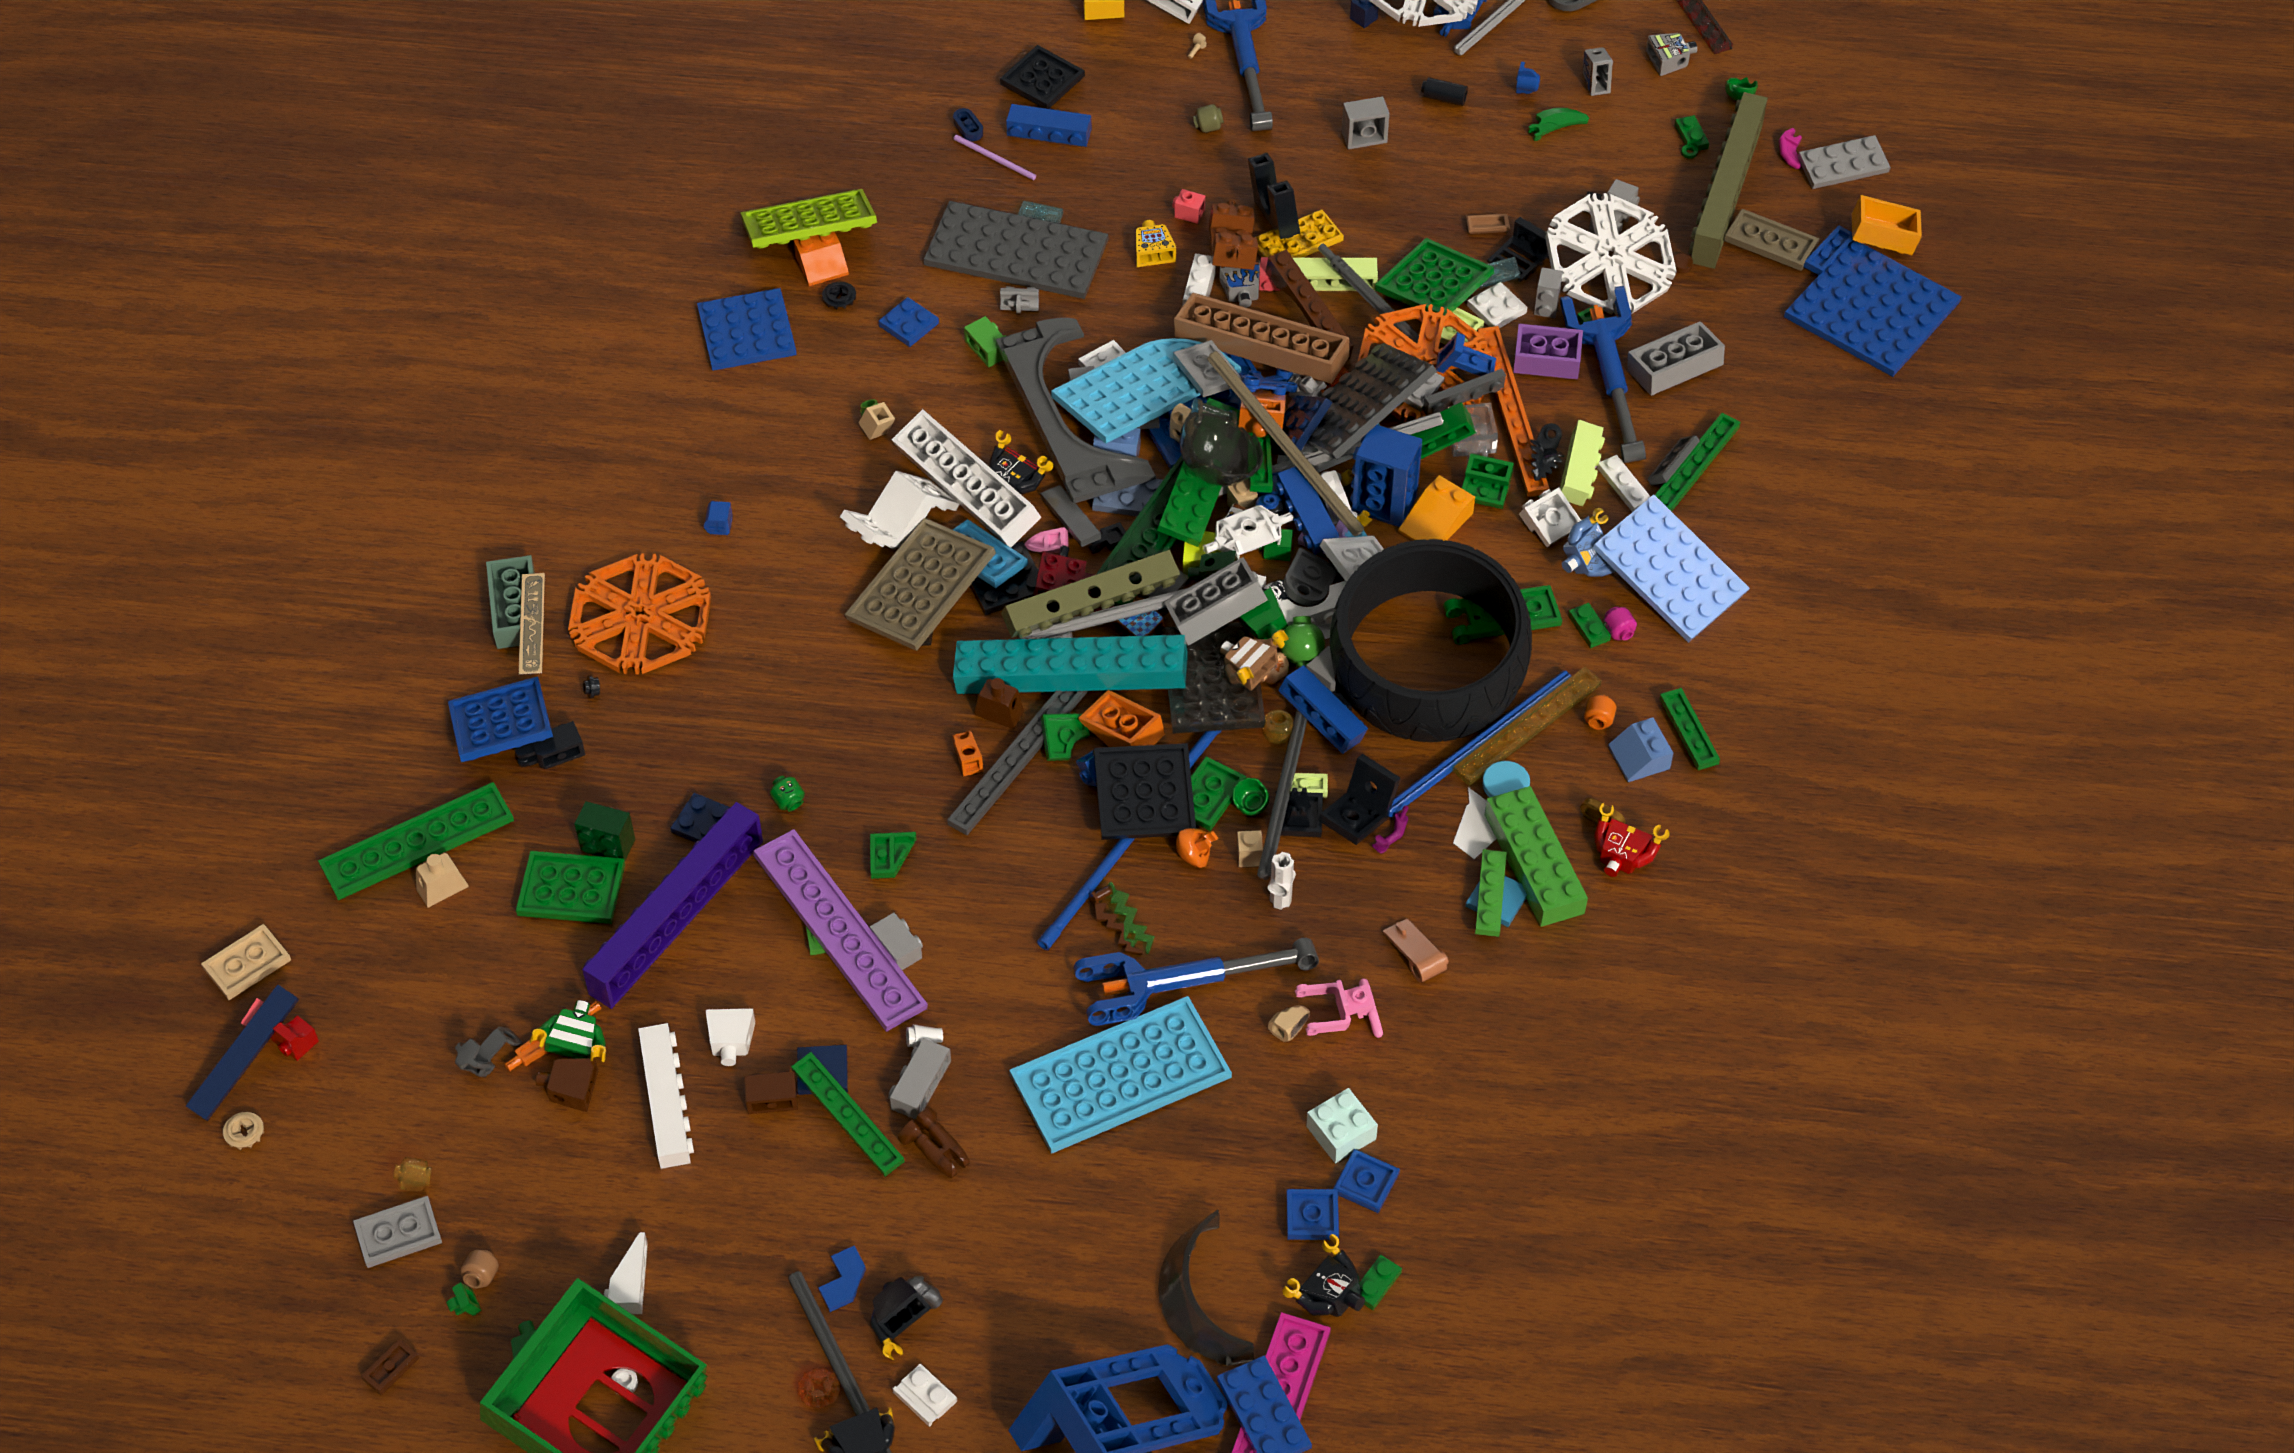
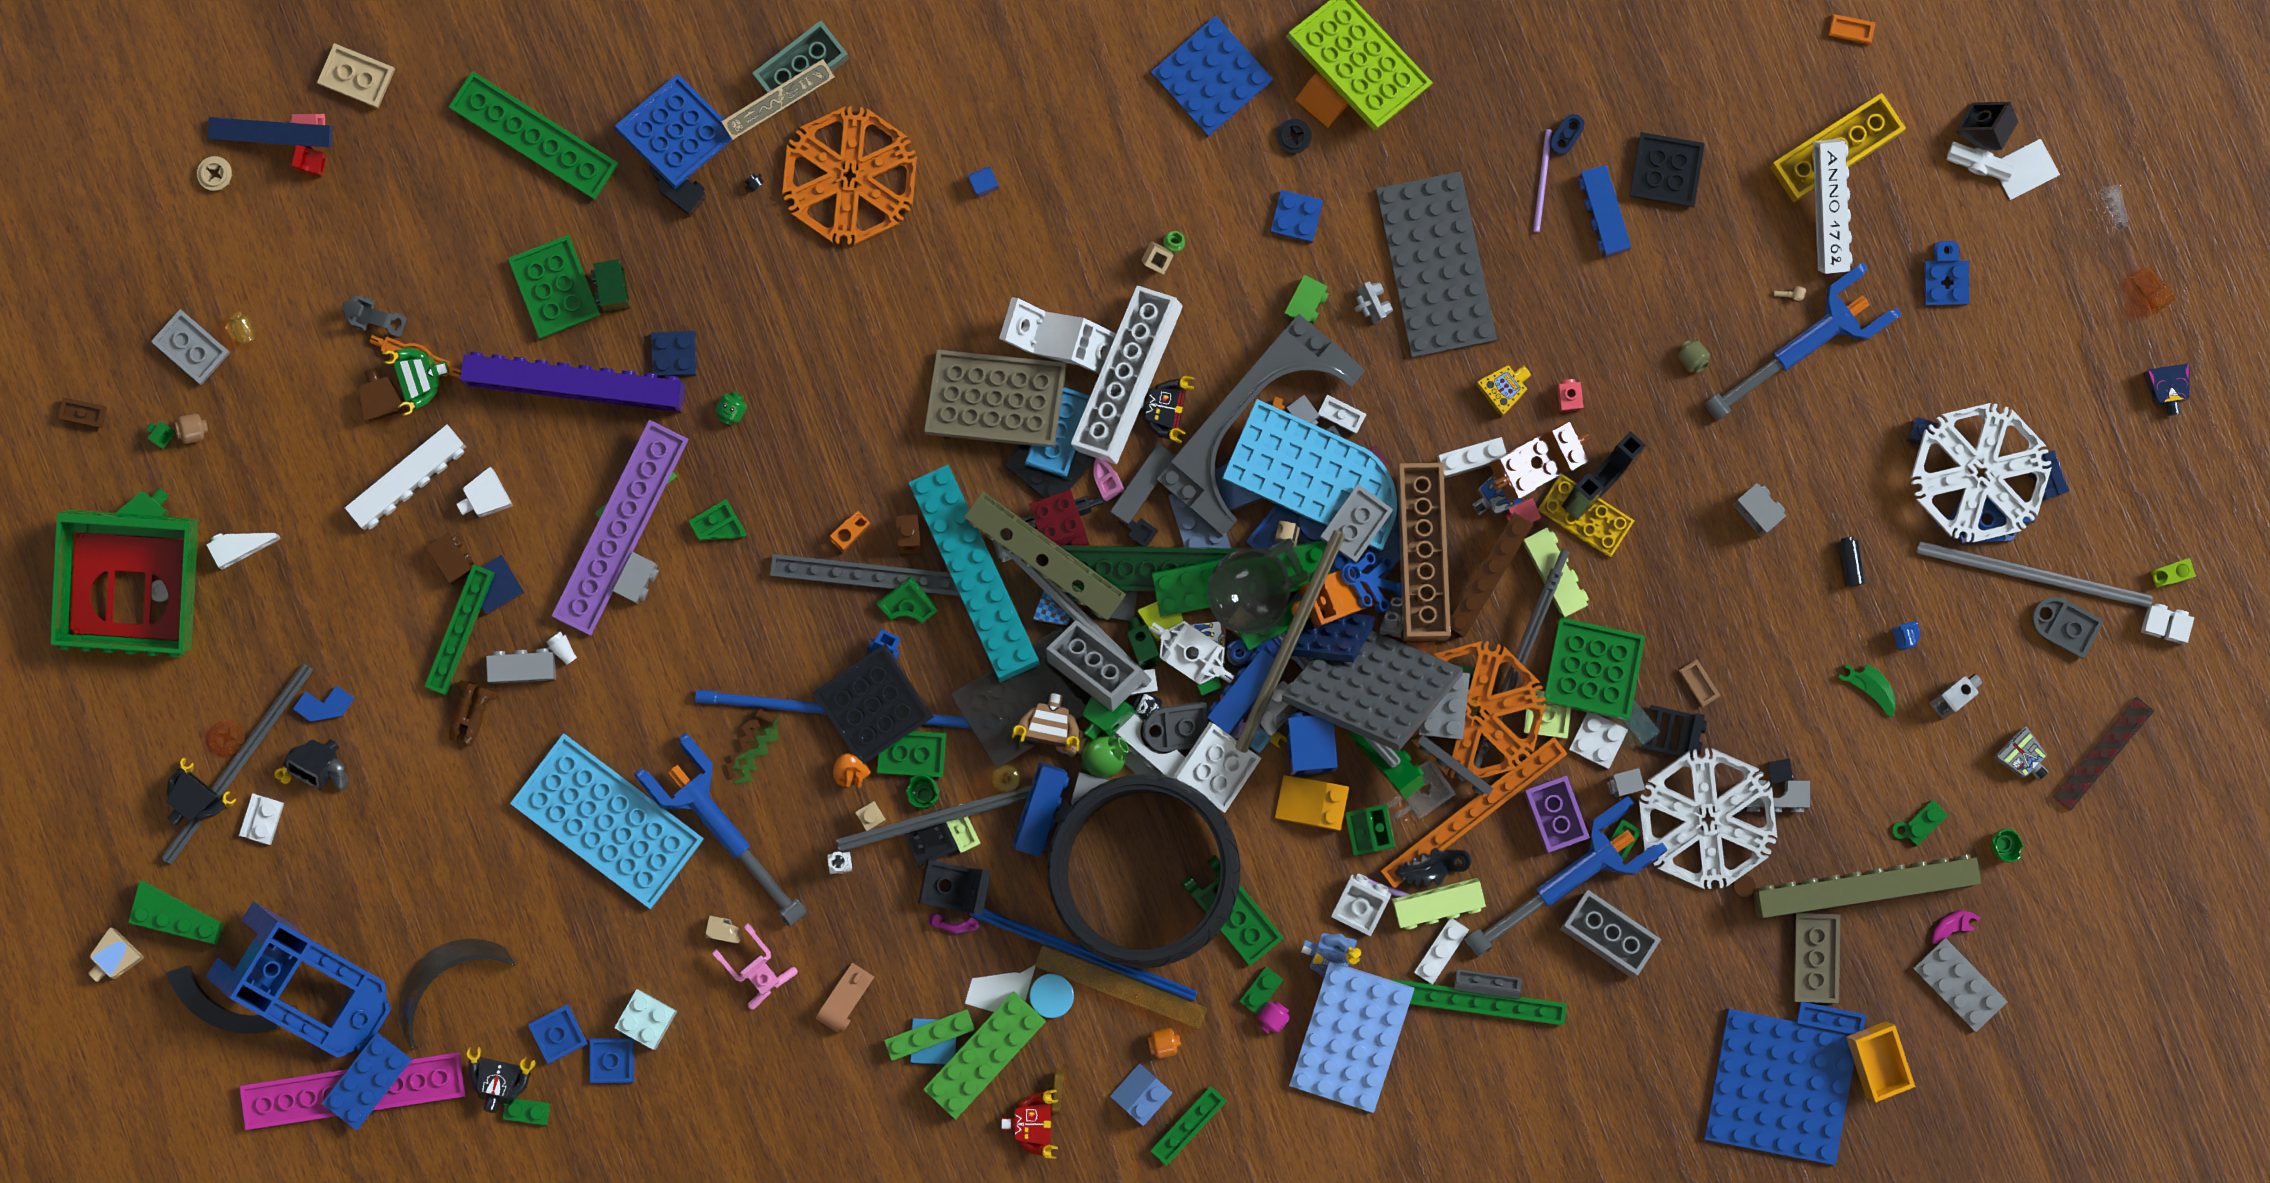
camera: 60 degrees right, 30 degrees up
(438, 879) = (504, 181): tan torso -> none
(1041, 212) = (1491, 262): clear light blue plate -> none
(1122, 722) = (940, 647): orange slope -> none
(1464, 358) = (1488, 751): blue bracket -> none

